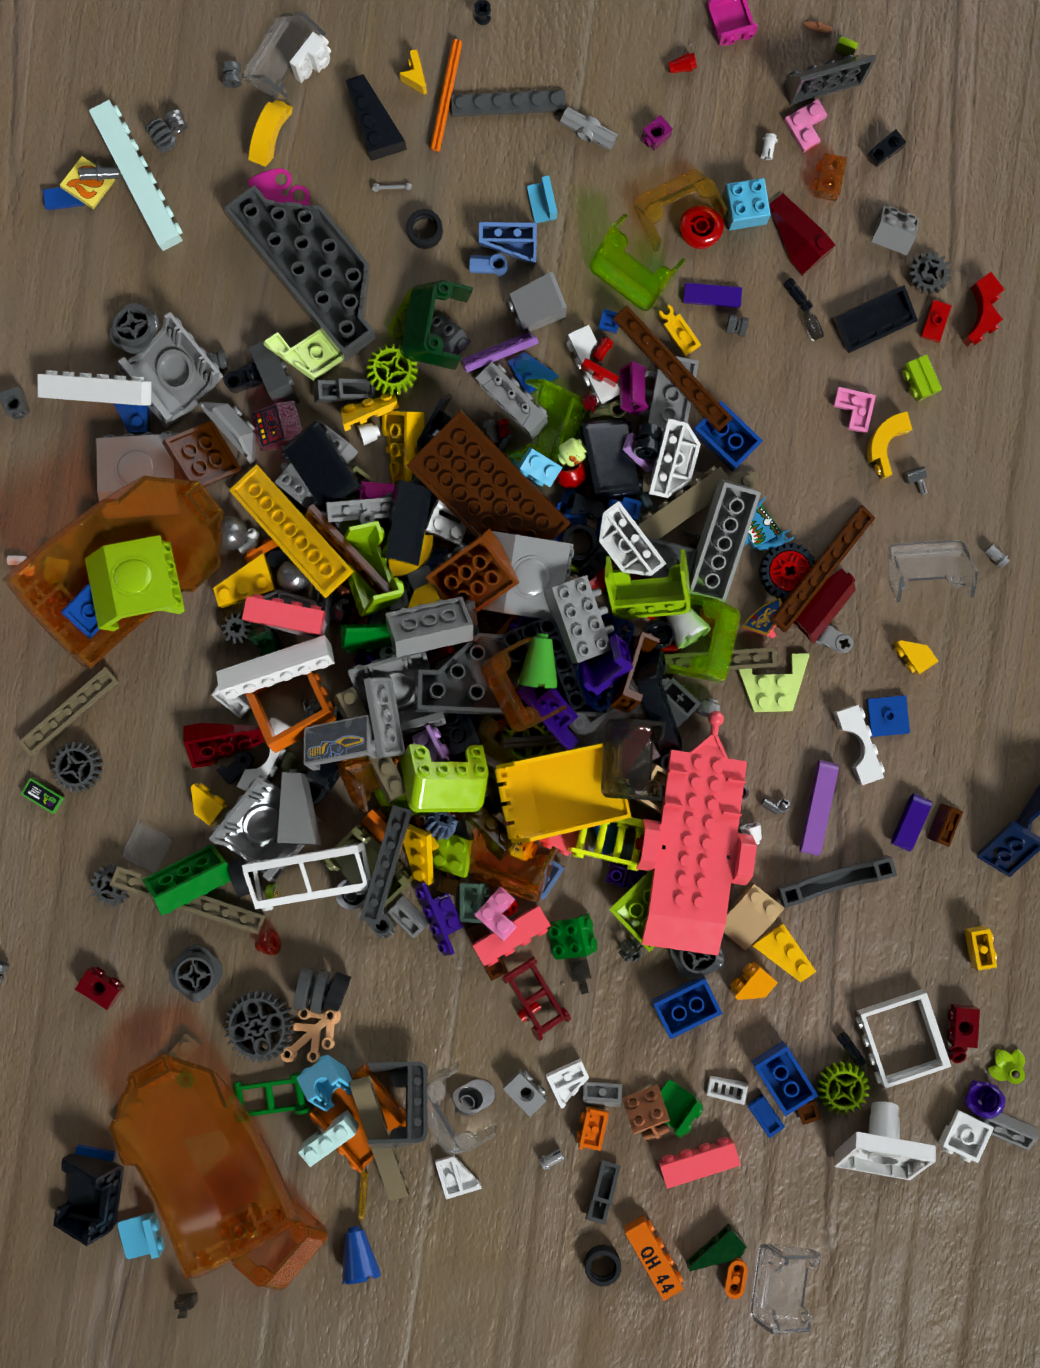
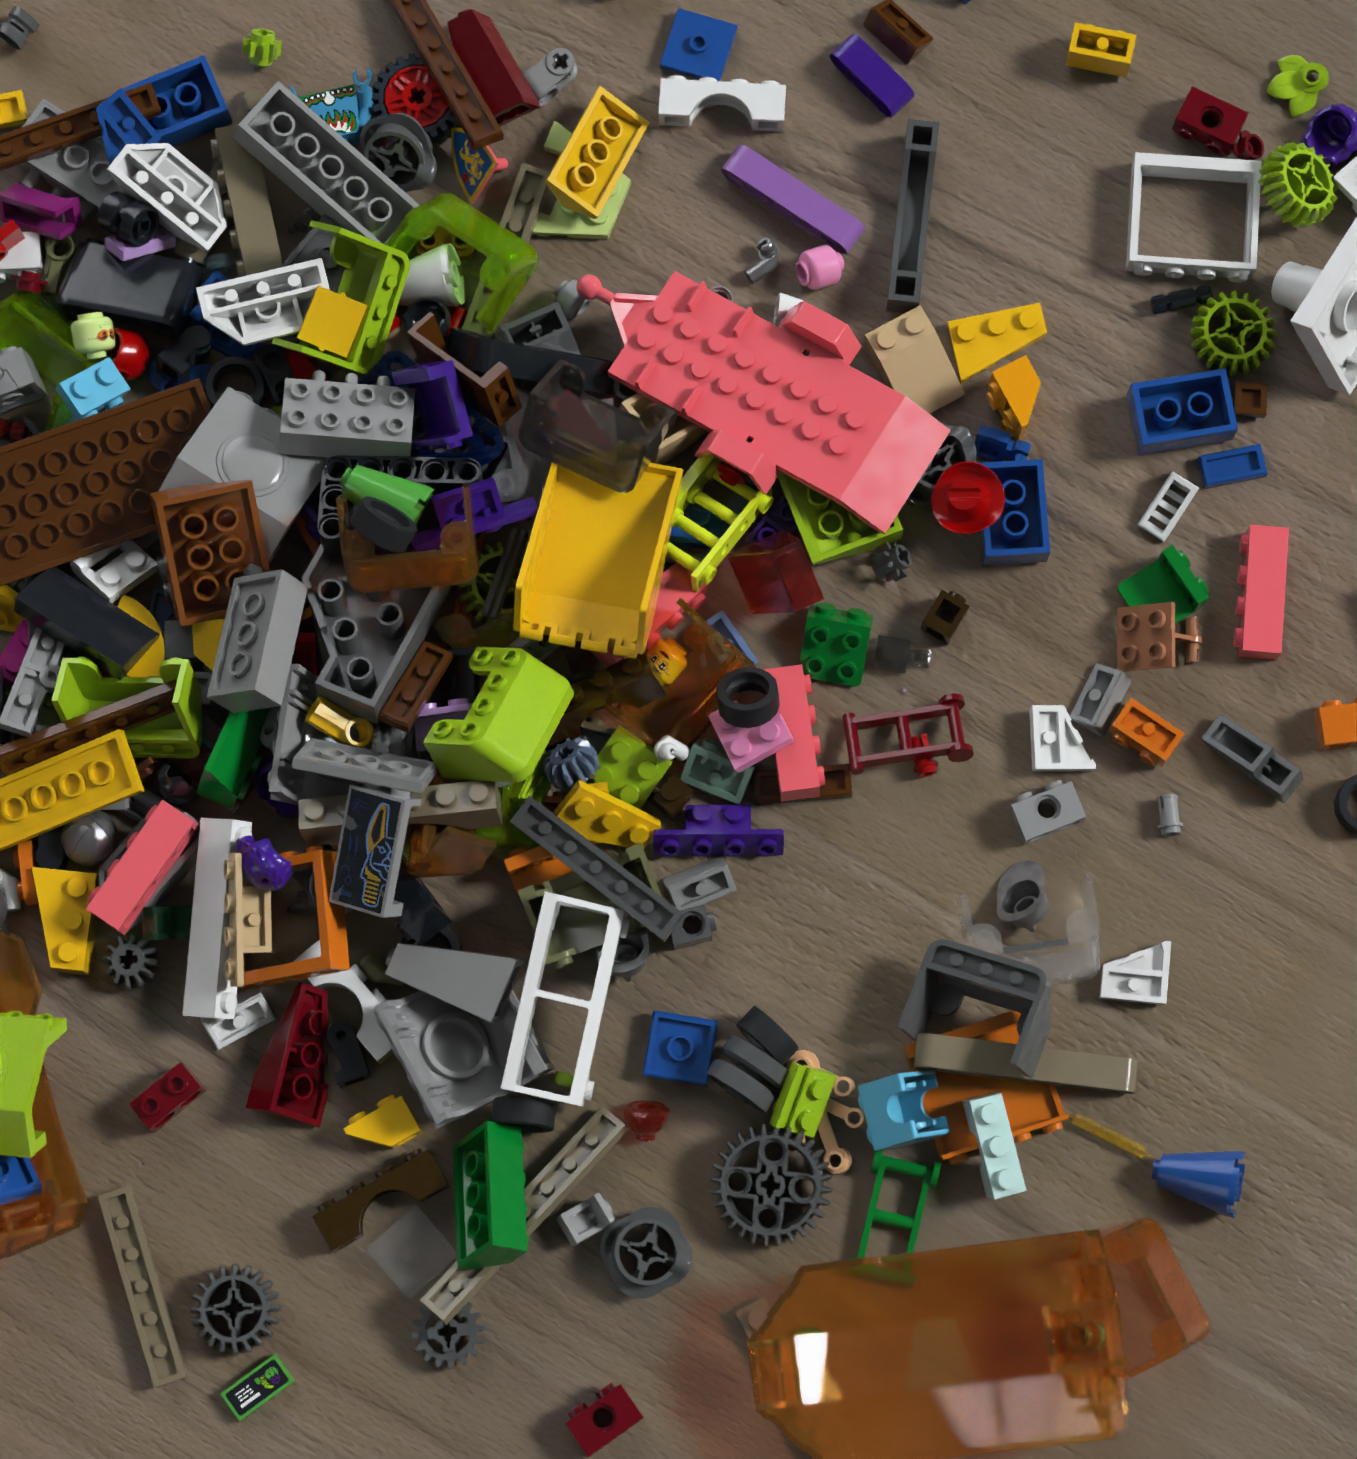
camera: 65 degrees left, 10 degrees down
(172, 680) = (167, 1097): none -> dark red brick
(185, 833) = (343, 1220): none -> dark brown arch
(200, 933) = (586, 1219): none -> light grey bracket
(278, 687) = (248, 920): none -> tan bracket
(308, 682) = (262, 864): none -> dark purple hair
(310, 1025) = (803, 1099): none -> lime plate
(313, 944) = (680, 1048): none -> blue plate
(405, 688) = (337, 723): none -> yellow piece
(407, 716) = (381, 738): none -> dark grey axle
(444, 722) = (415, 686): none -> reddish brown tile
(473, 873) = (670, 748): none -> white arm
(518, 672) = (383, 524): none -> black tyre
(529, 903) = (744, 680): none -> black tyre
(594, 892) = (775, 575): none -> clear red slope
(607, 997) = (945, 602): none -> dark brown brick
(632, 584) = (332, 321): none -> yellow piece
(681, 982) = (967, 498): none -> red hat
(699, 415) = (123, 124): none -> blue wing
(722, 981) = (996, 445): none -> blue plate
(752, 575) = (407, 152): none -> dark grey piece
(783, 469) = (261, 47): none -> lime gear
(784, 839) = (819, 267): none -> bright pink head
(797, 687) = (596, 154): none -> yellow slope
(945, 1092) = (1297, 184): none -> lime gear

